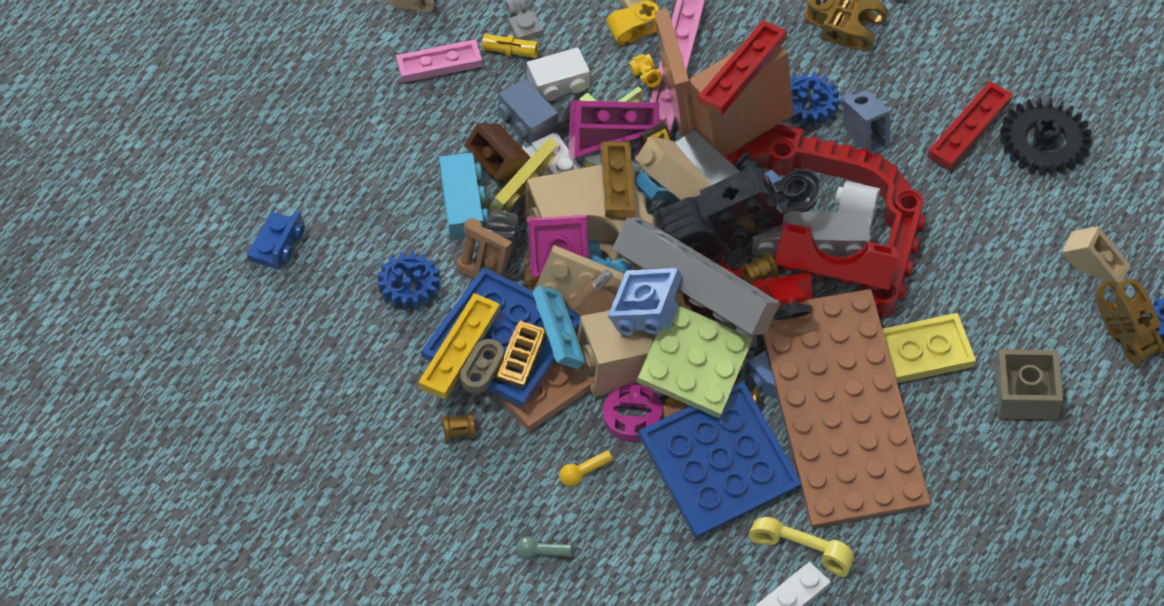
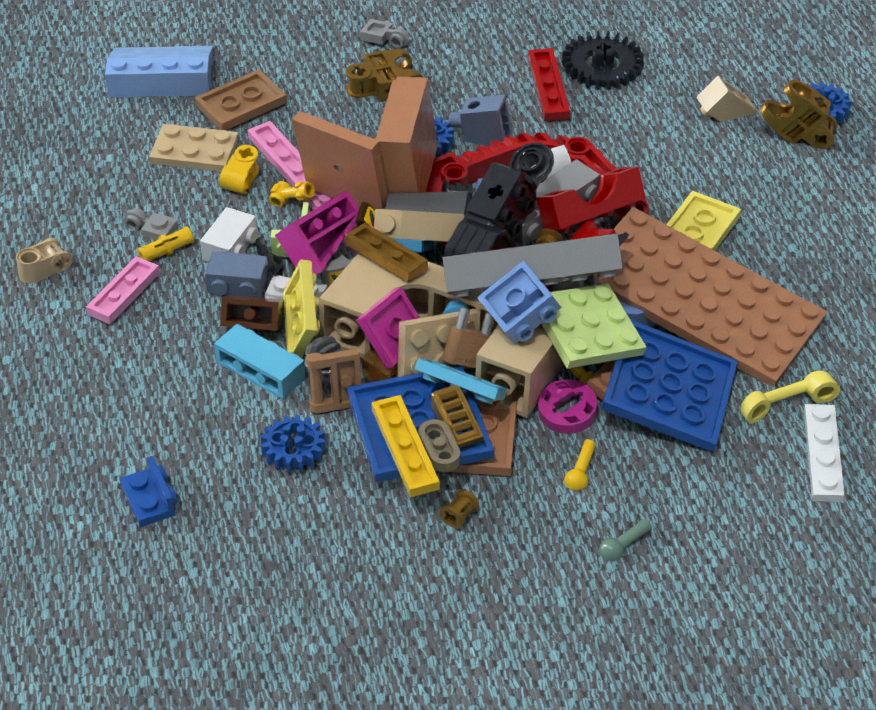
camera: 45 degrees left, 10 degrees down
(742, 67) = (412, 103): red plate -> none
(1028, 384) = (792, 197): dark tan brick -> none

